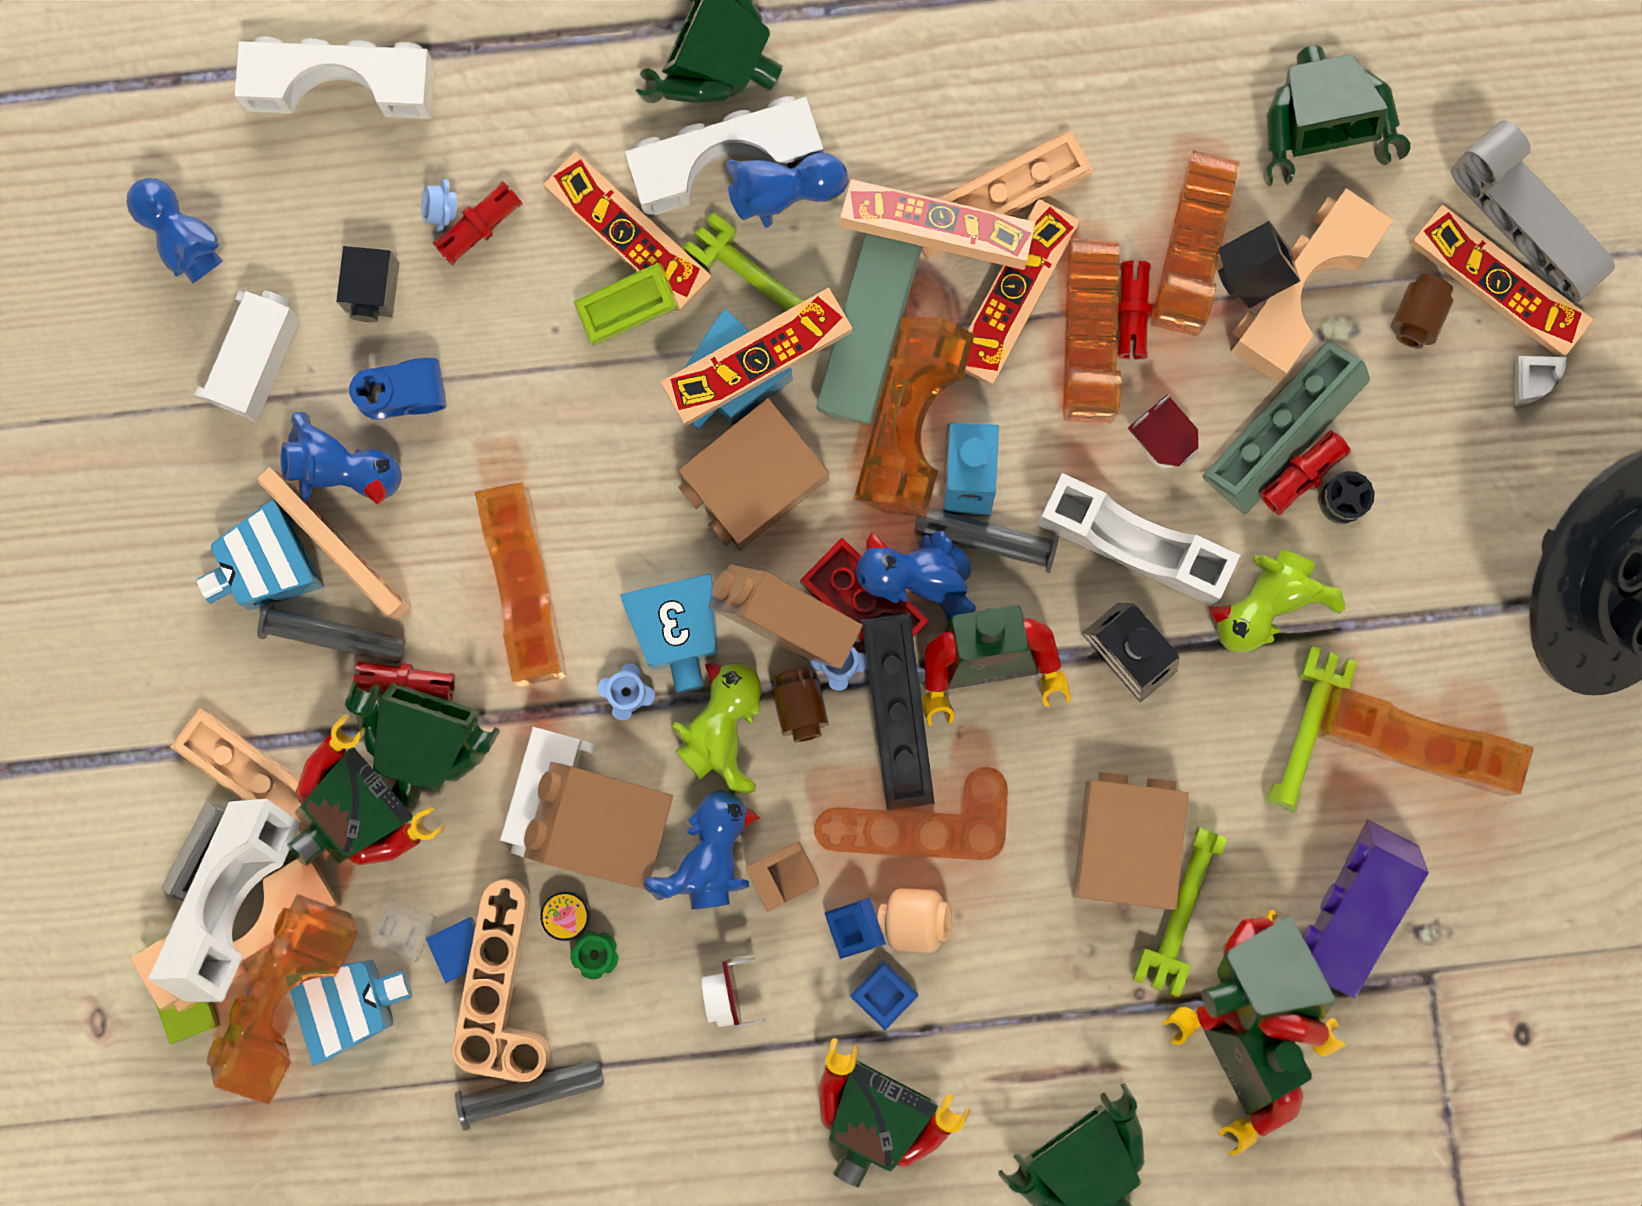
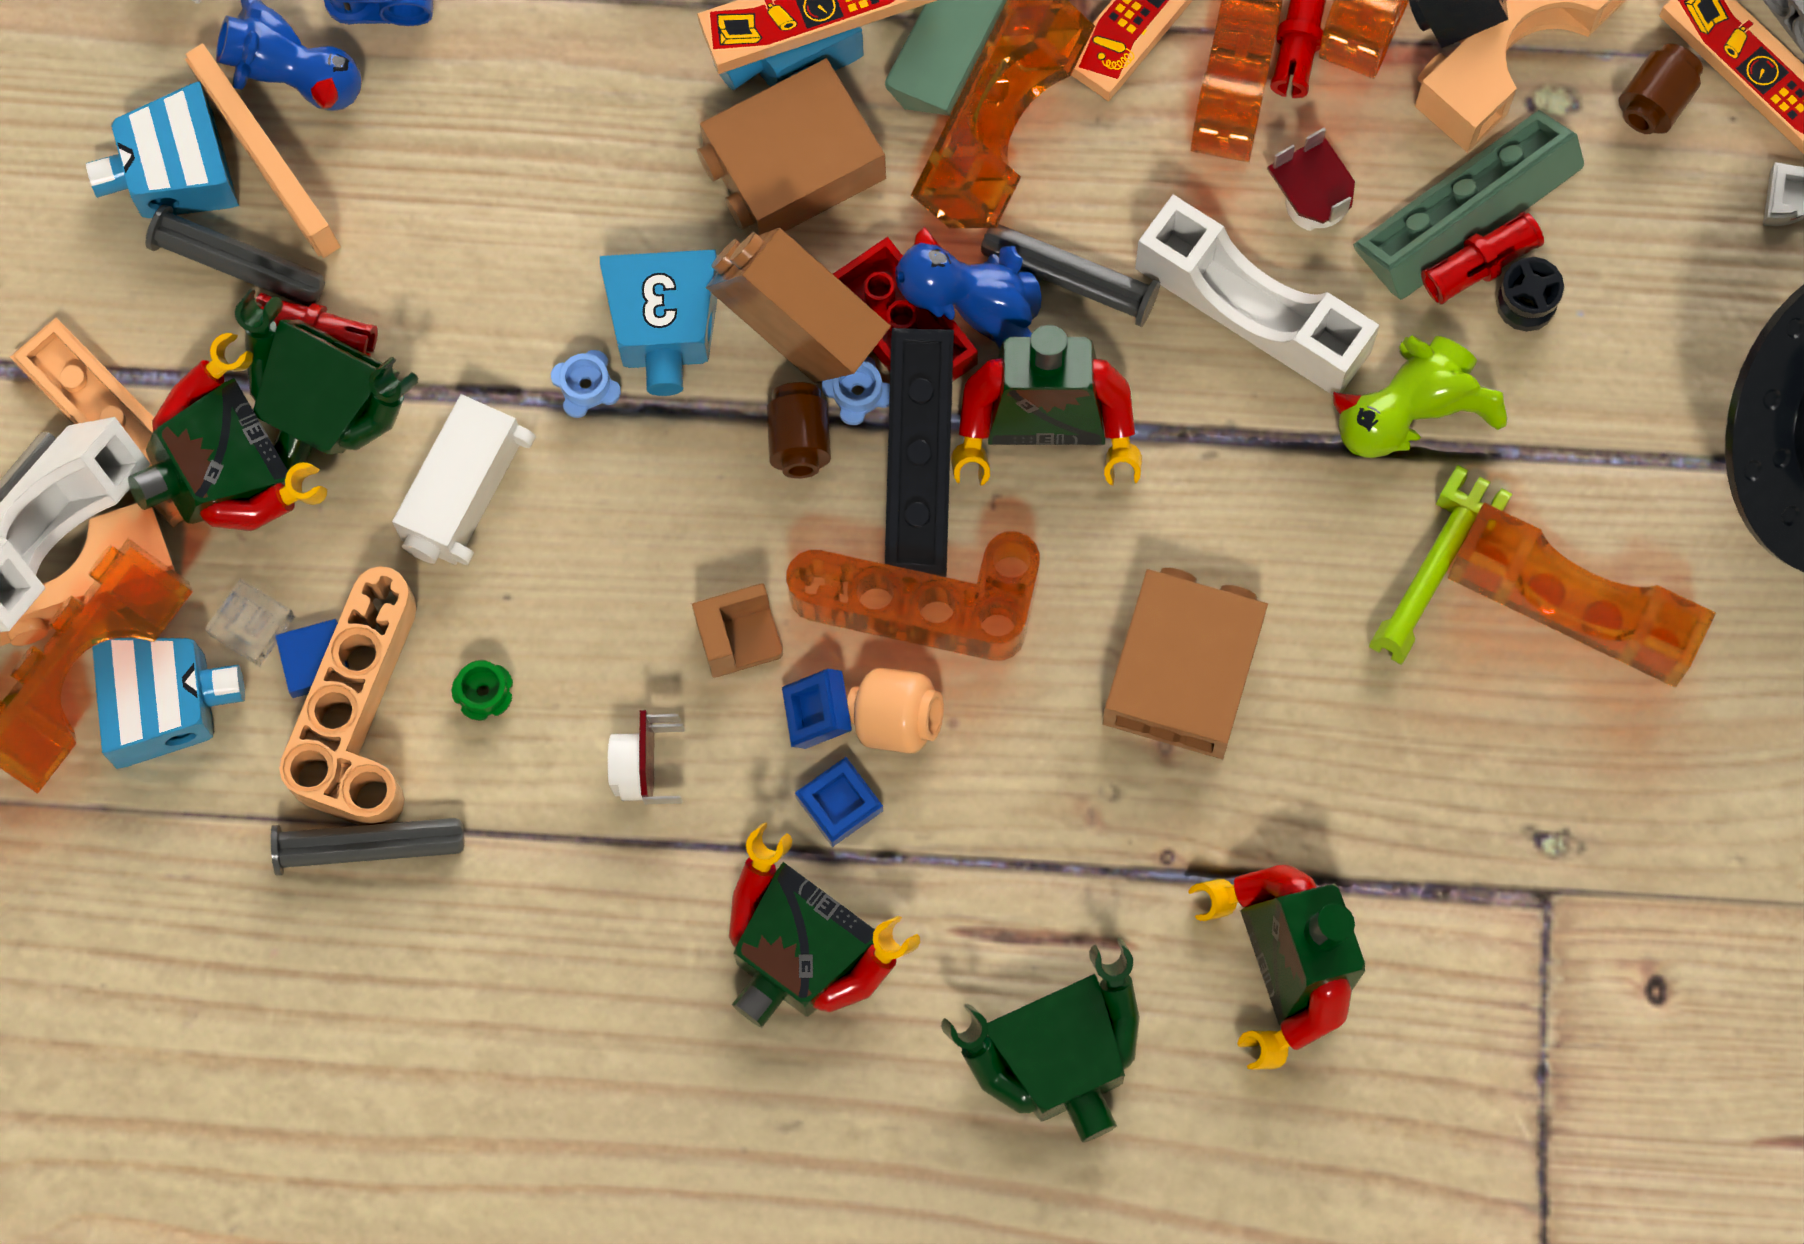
camera: 10 degrees right, 10 degrees down
(523, 584) = (483, 229): clear orange arch -> none
(565, 916) = (455, 638): tile -> none
(597, 825) = (516, 521): medium nougat brick -> none
(709, 867) = (646, 604): blue animal -> none
(713, 734) = (683, 446): lime animal -> none
(970, 468) = (1062, 172): dark azure torso -> none
(1133, 649) = (1225, 424): black torso -> none
(1165, 962) = (1282, 683): lime hinge -> none
(1274, 985) = (1335, 844): torso -> none
(1365, 906) = (1463, 787): dark purple wedge -> none

